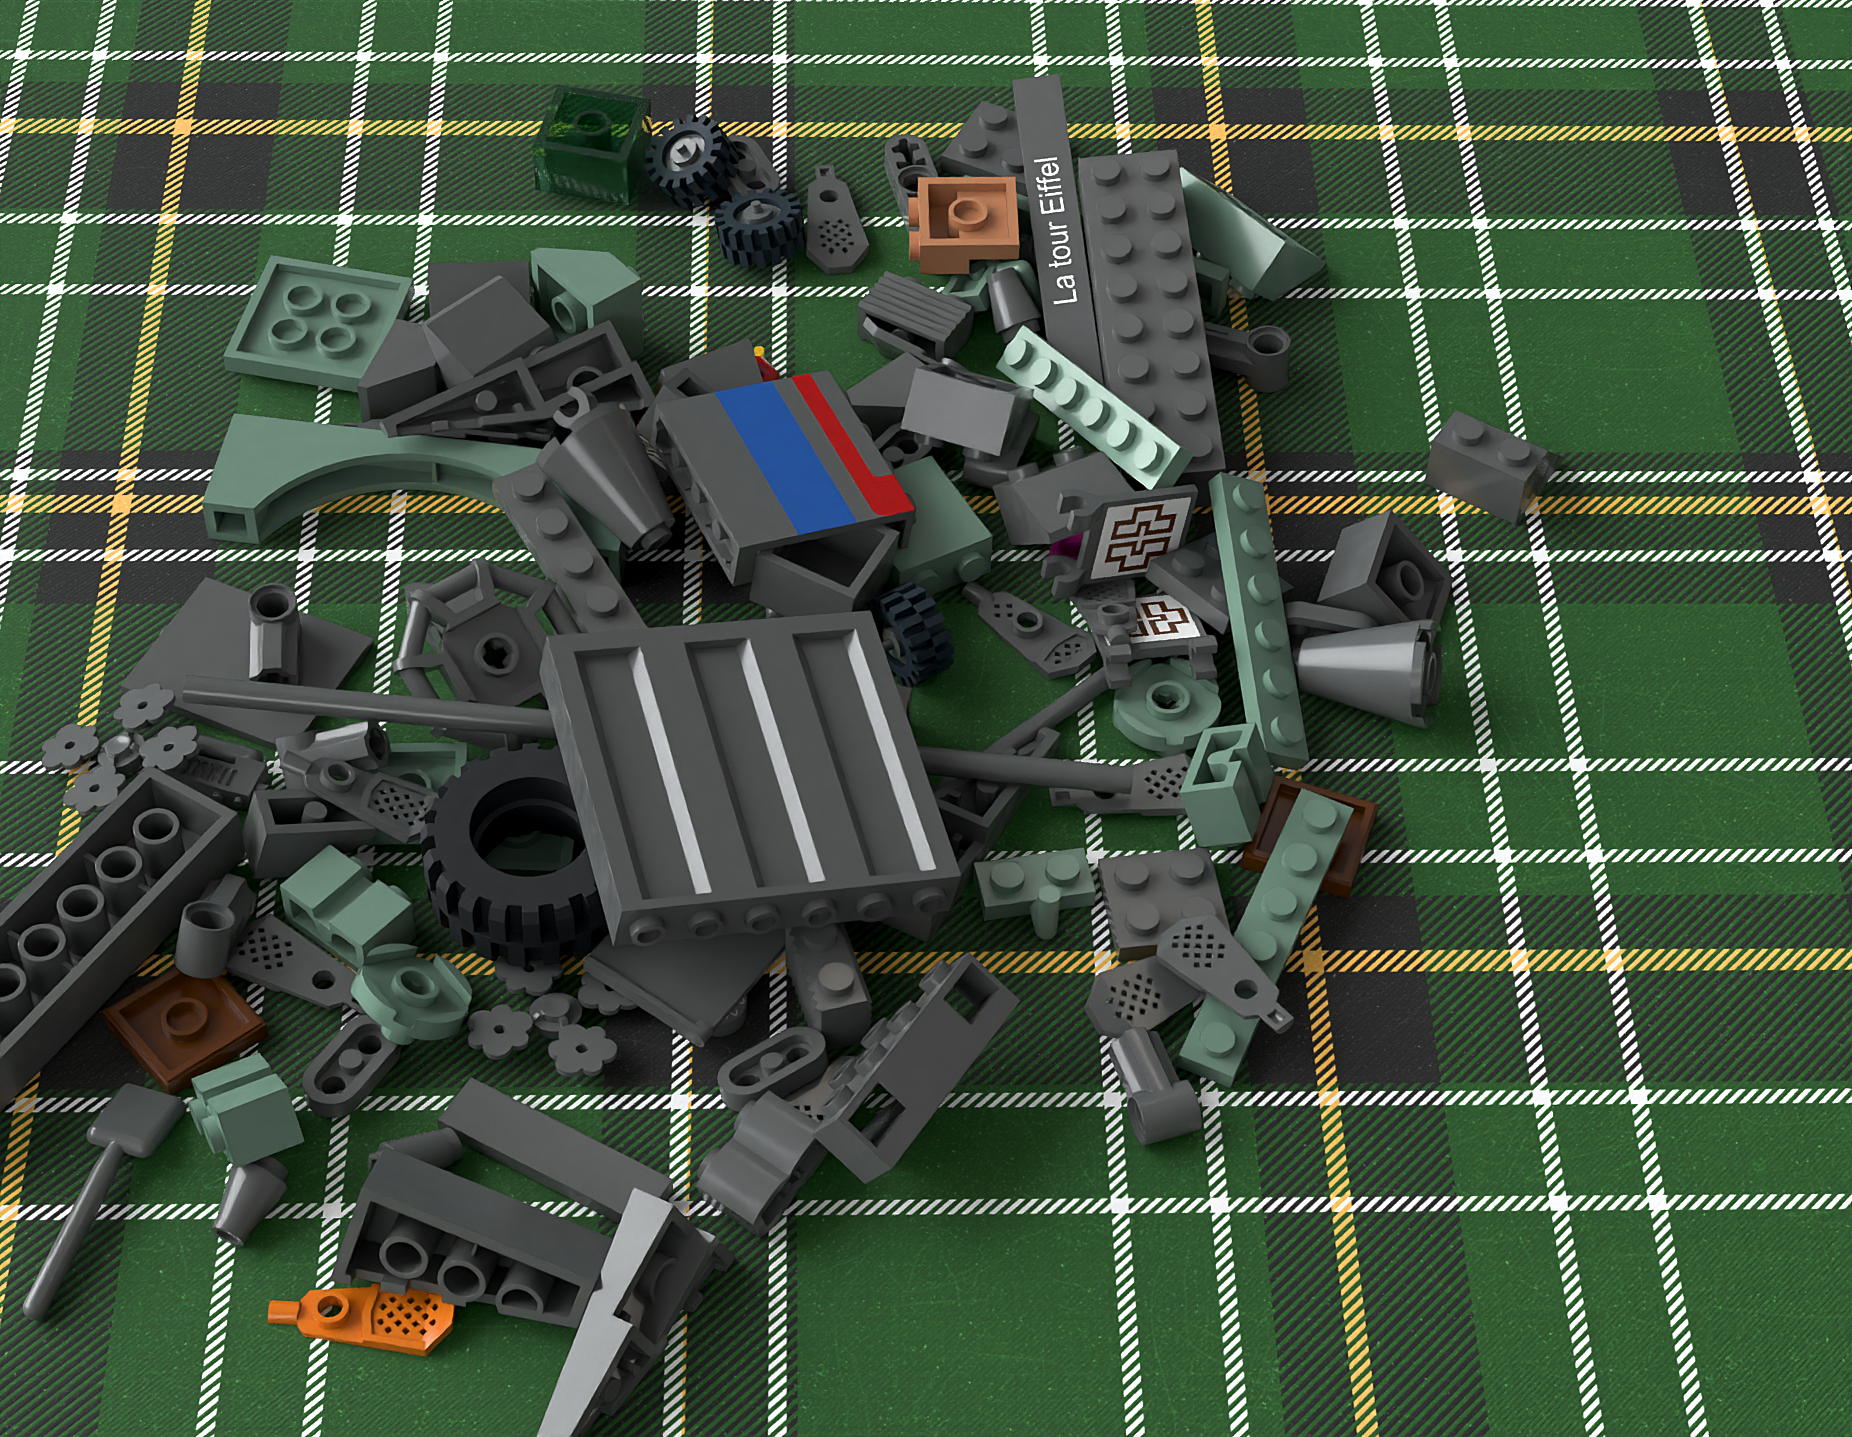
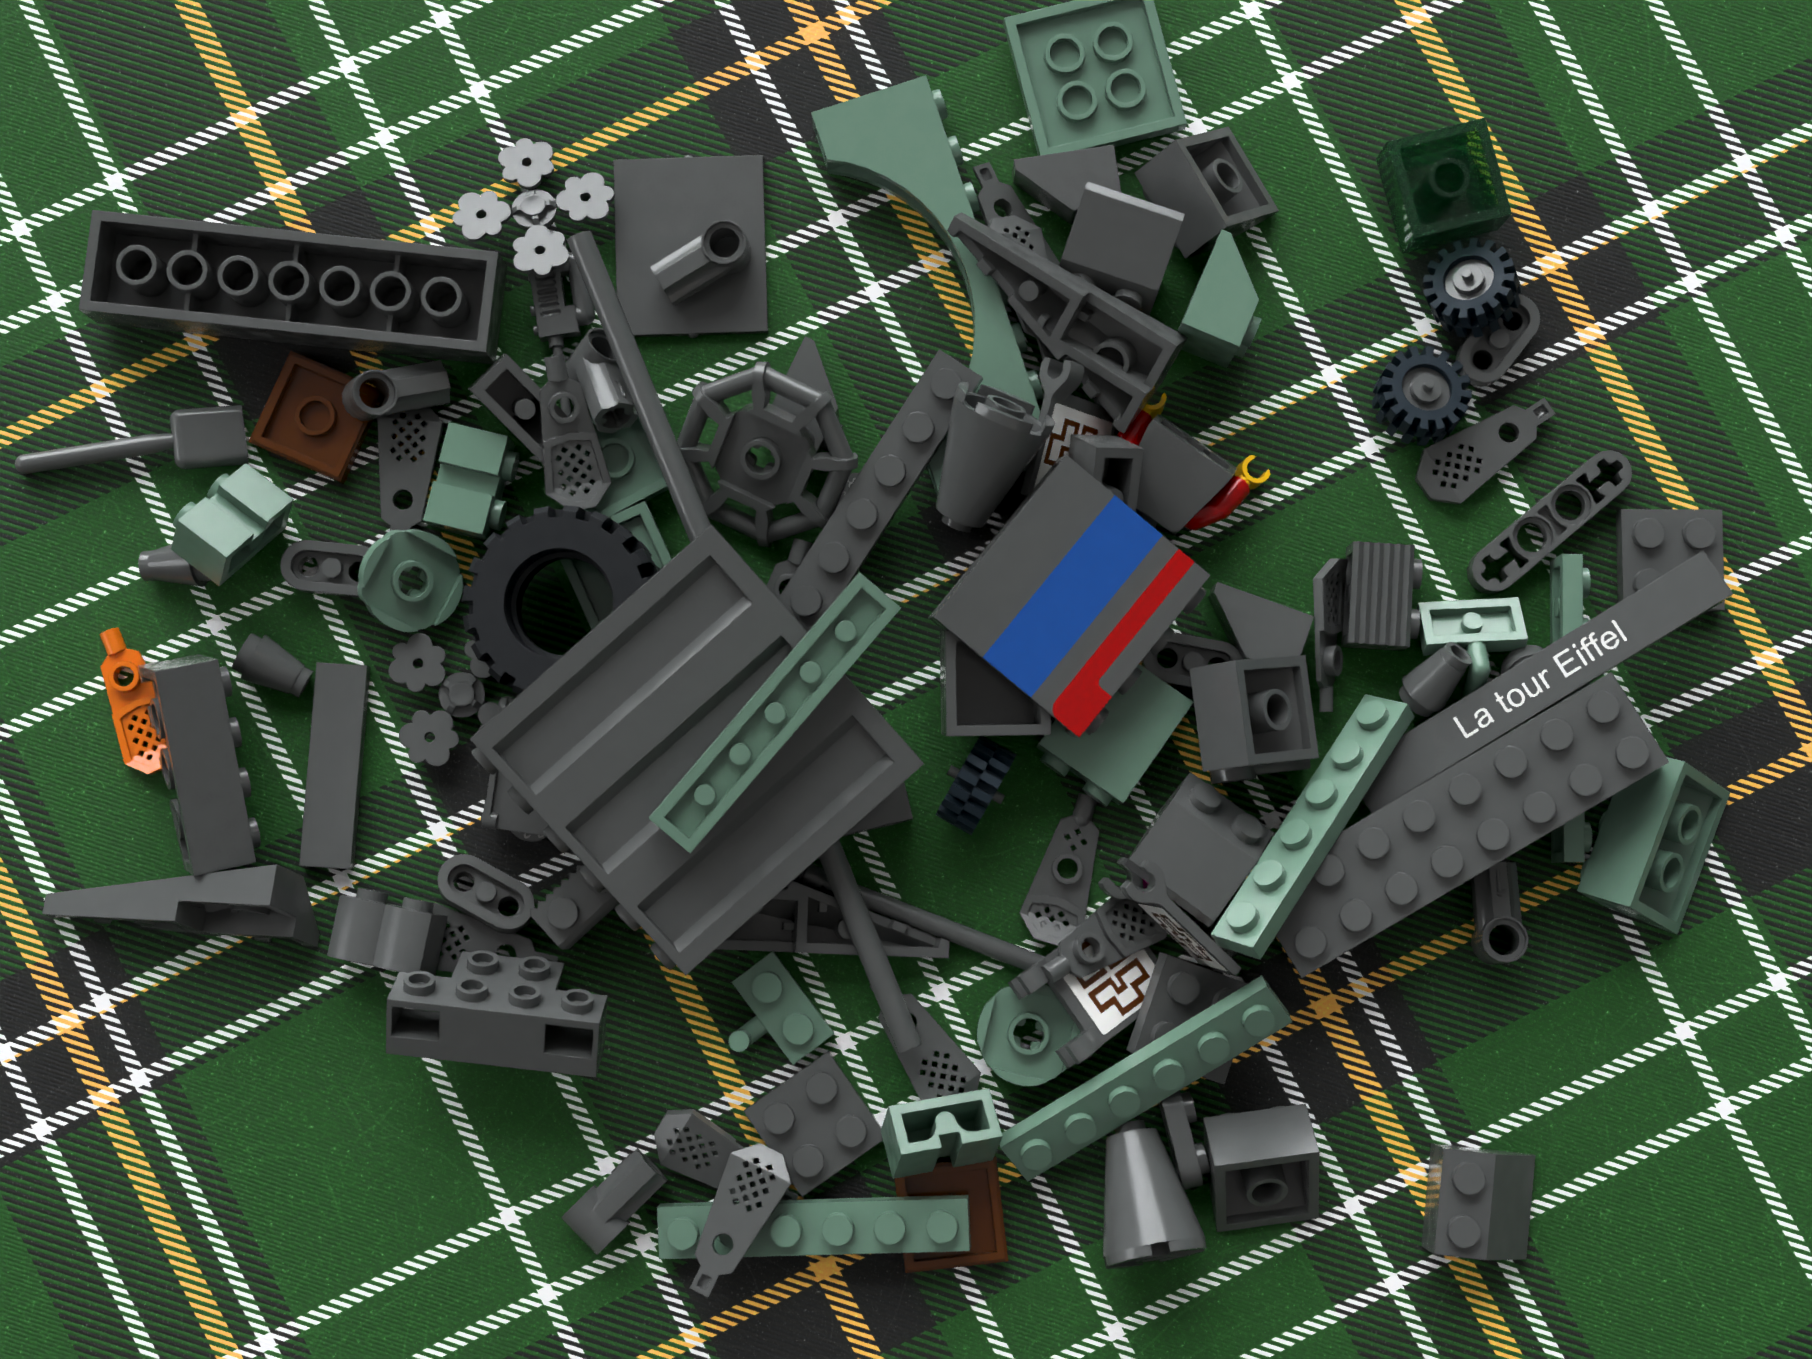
camera: 65 degrees right, 35 degrees up
(756, 672) = (774, 712): none -> sand green plate
(962, 222) = (1507, 588): nougat plate -> none

